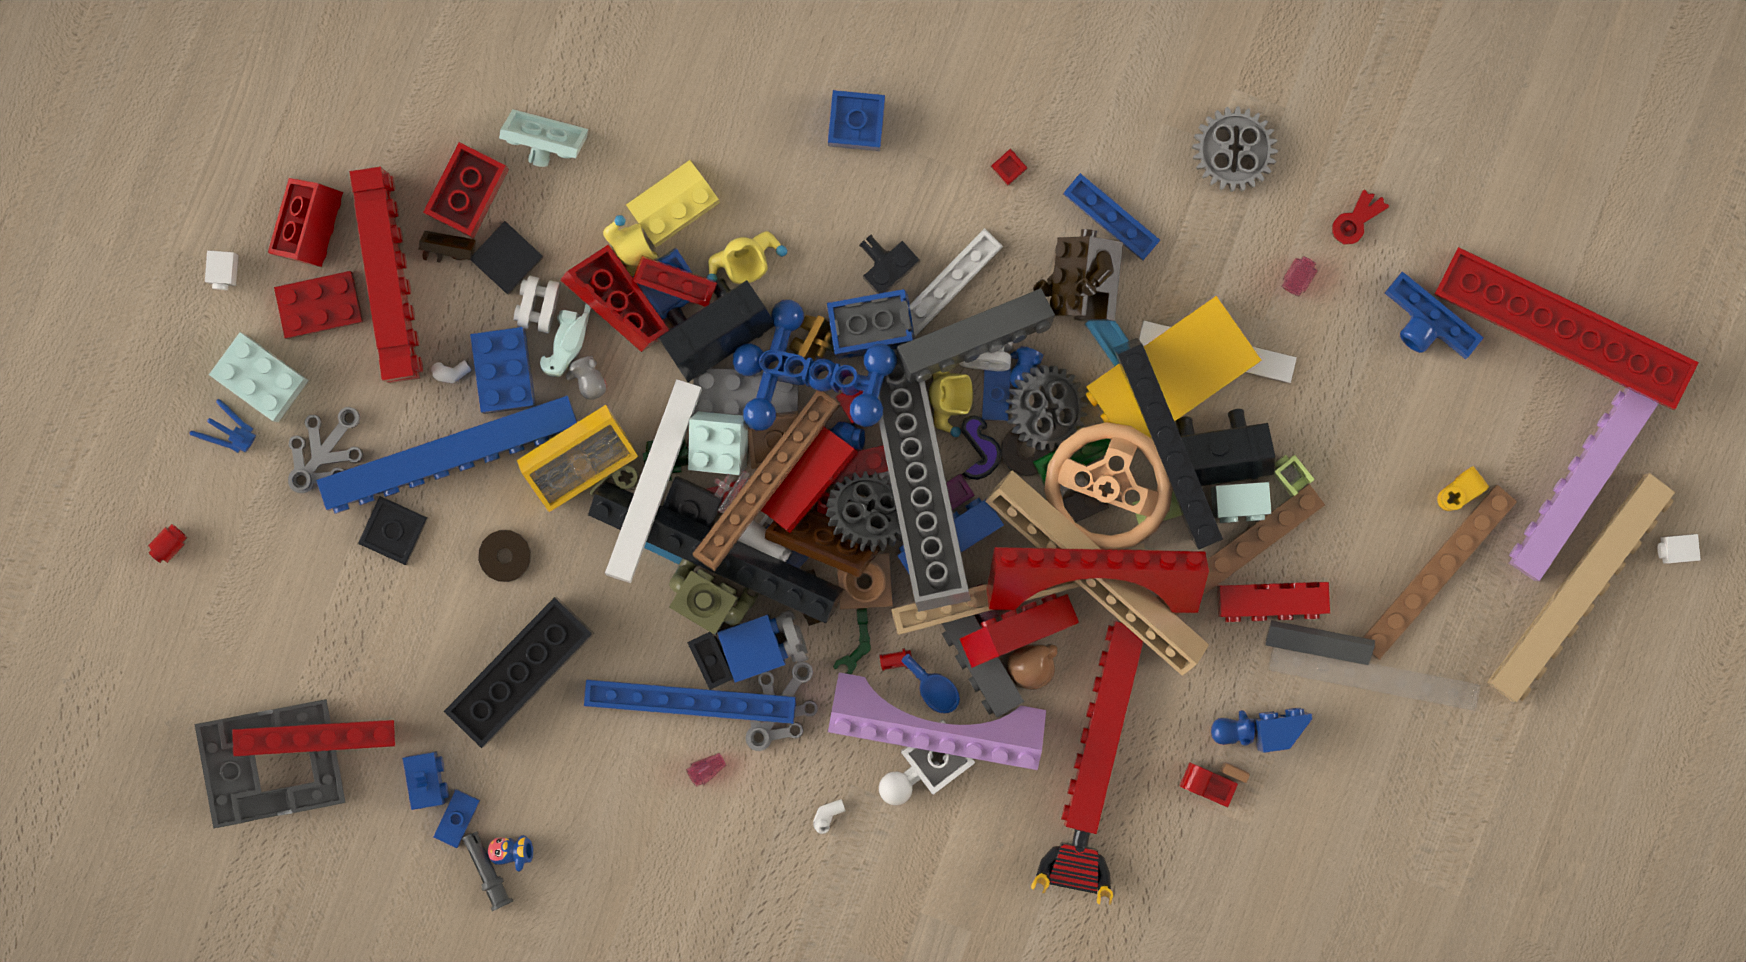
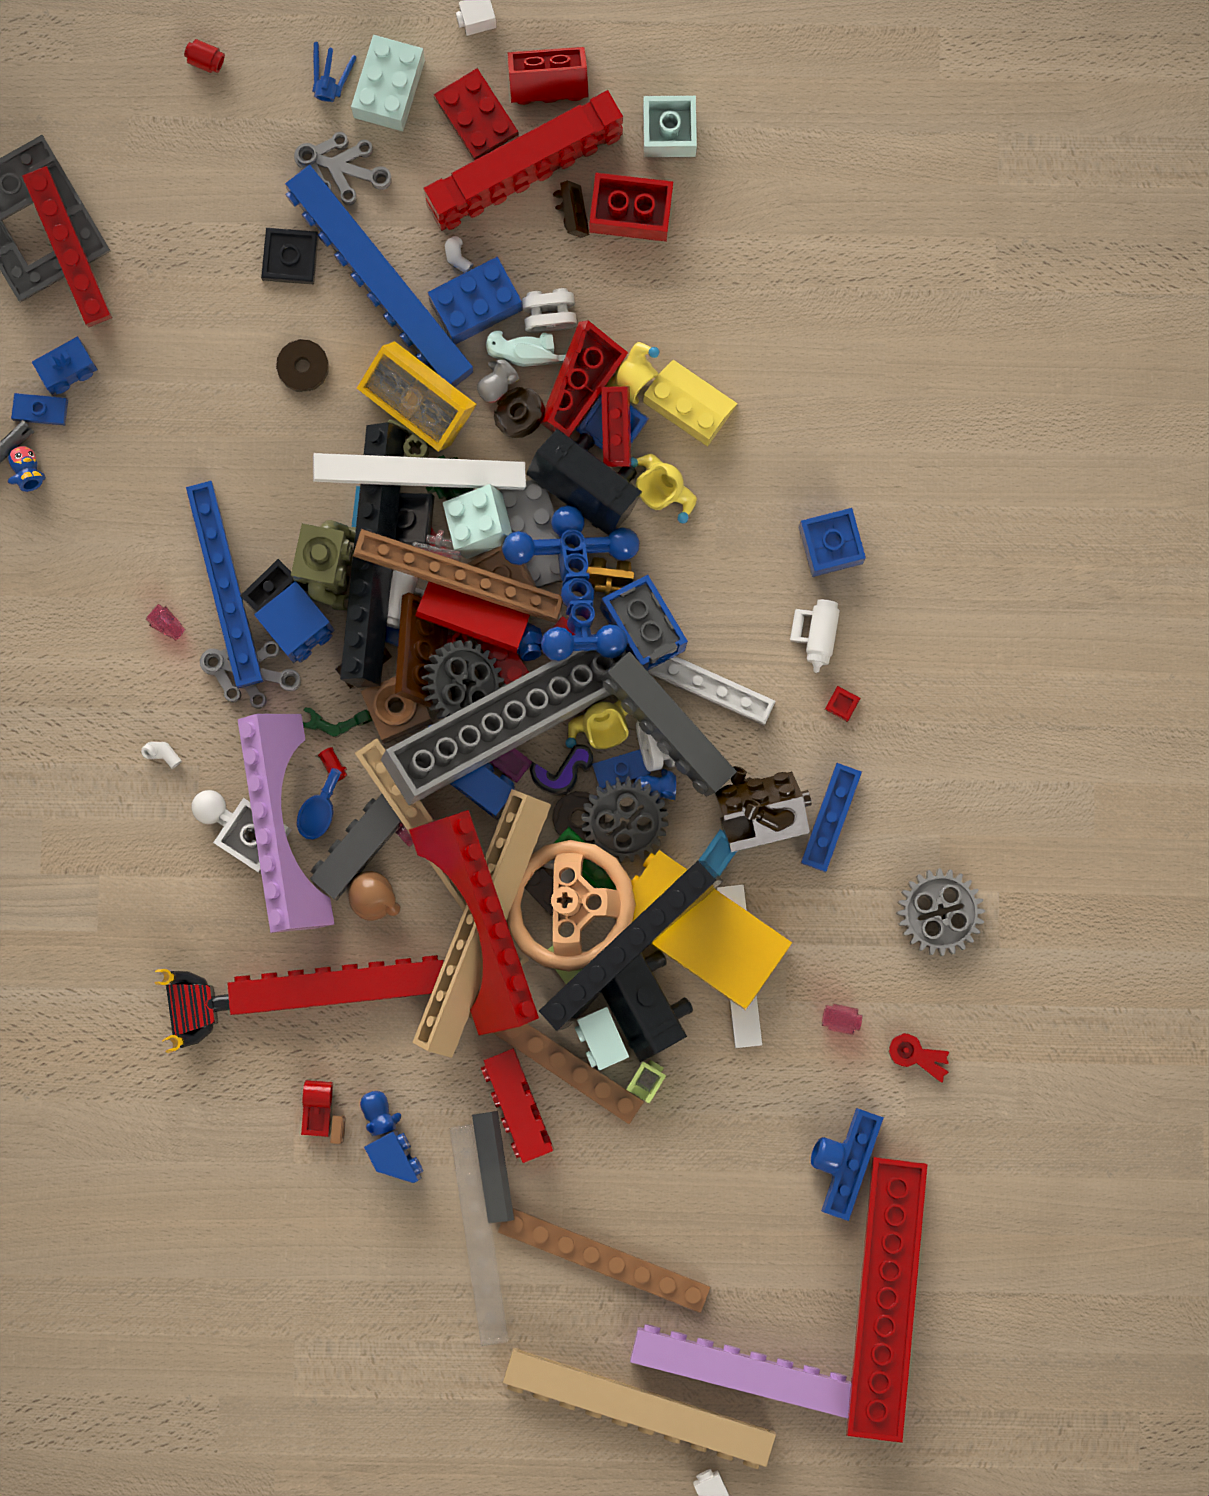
camera: 70 degrees right, 5 degrees down
(400, 125) = (669, 126): none -> light aqua brick
(506, 257) = (582, 268): black tile -> none
(519, 672) = (196, 415): black brick -> none
(543, 136) = (707, 258): light aqua plate -> none
(638, 362) = (530, 418): none -> dark brown tile
(795, 643) = (319, 658): light grey plate -> none
(889, 265) = (705, 622): black brick -> none
(937, 162) = (821, 633): none -> white piece
(1019, 629) = (401, 869): red wedge -> none
(1465, 488) = (696, 1255): yellow piece -> none

